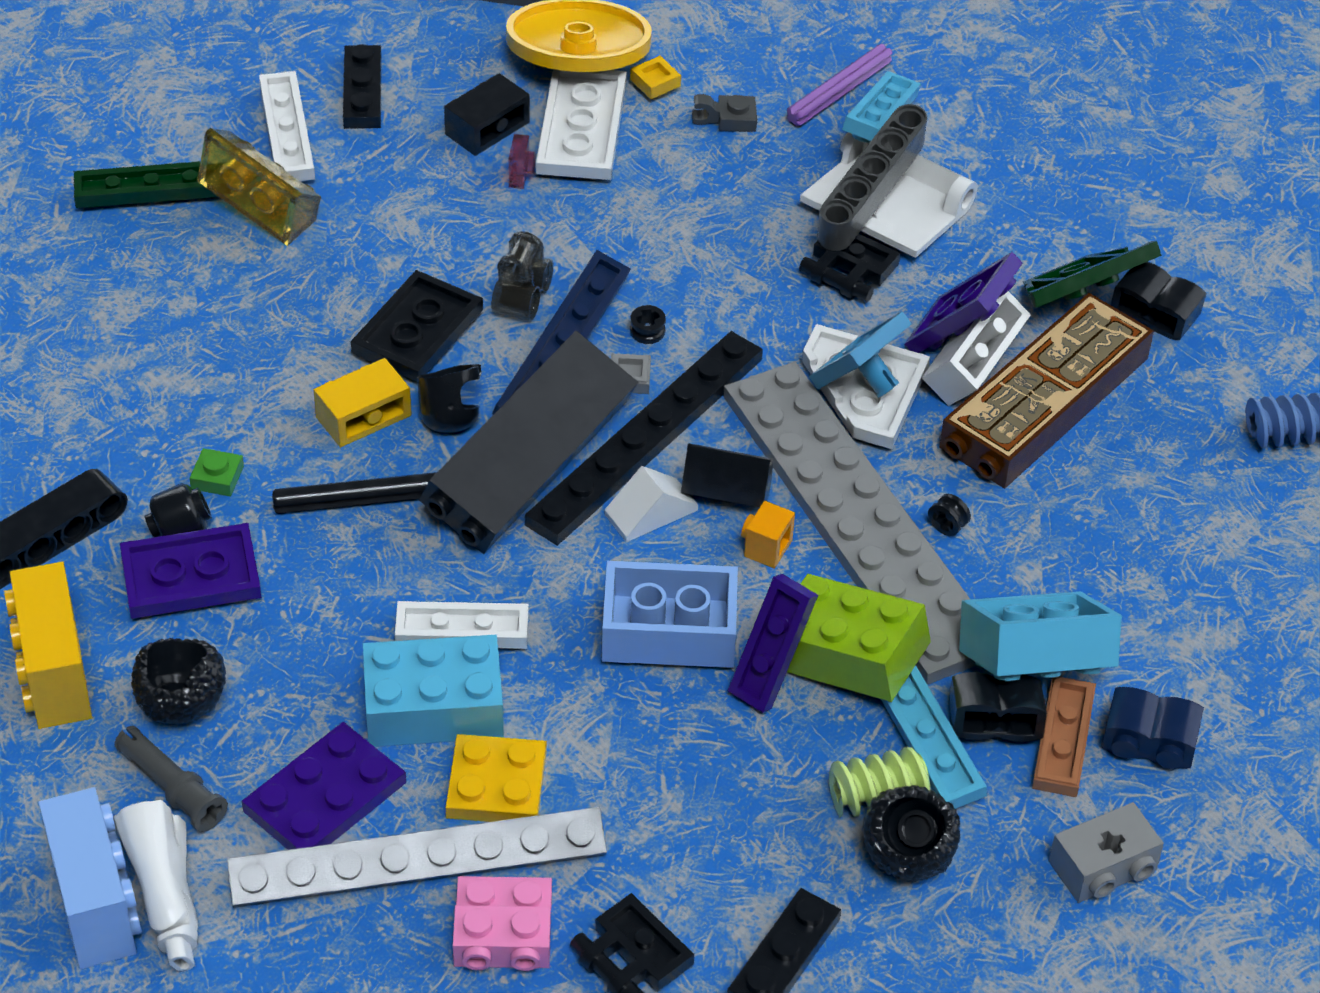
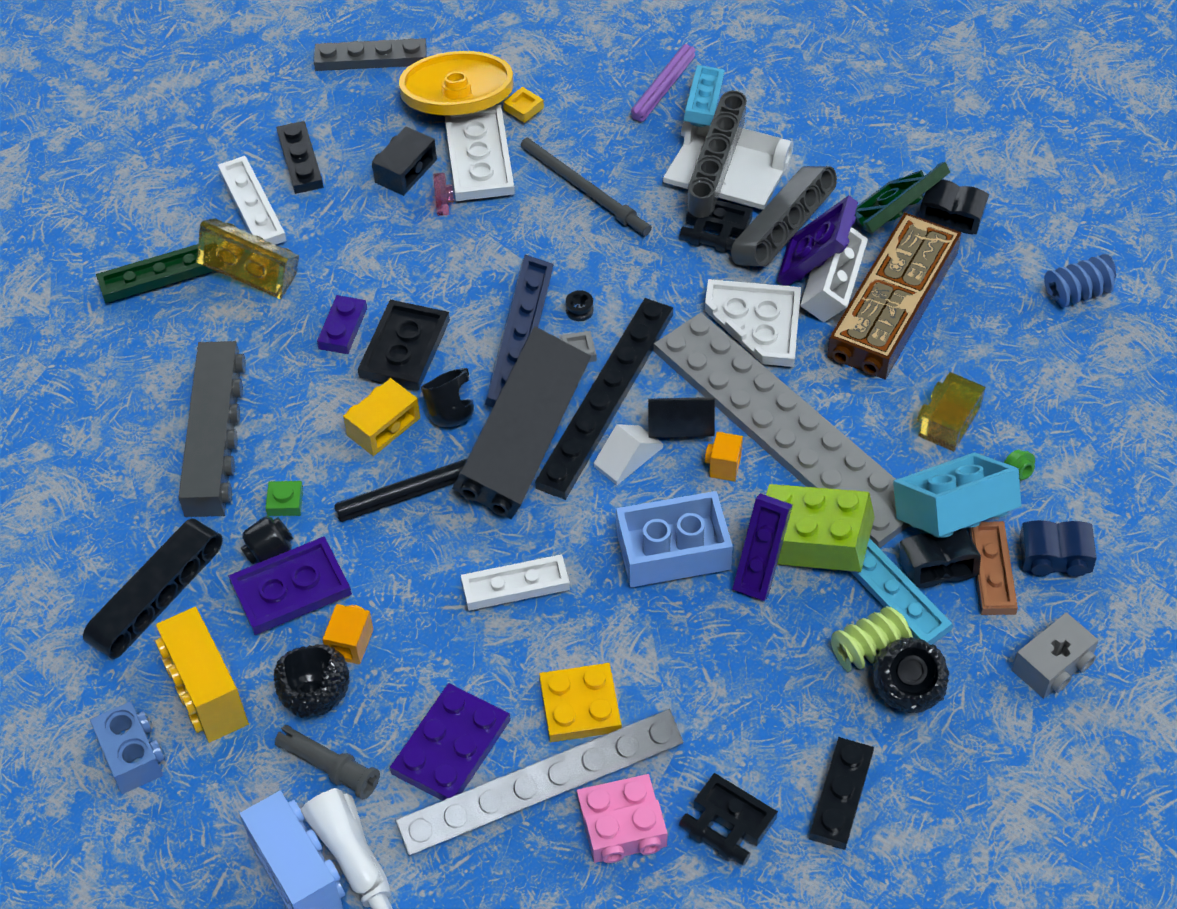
camera: 10 degrees left, 5 degrees up
(153, 375) = (211, 429): none -> dark grey brick
(242, 638) = (349, 632): none -> light orange brick
(350, 288) = (342, 324): none -> dark purple plate
(432, 690) = (511, 642): medium azure brick -> none
(522, 277) = (474, 289): clear smoke piece -> none
(731, 112) = (588, 121): dark grey plate -> none
(737, 227) = (623, 213): none -> dark grey bar
(863, 354) = (755, 299): dark azure tile -> none
(937, 267) = (784, 216): none -> dark grey beam
(949, 514) = (854, 411): black bush -> none
(1071, 540) = (950, 411): none -> clear yellow brick
(1138, 621) = (1024, 461): none -> bright green plate

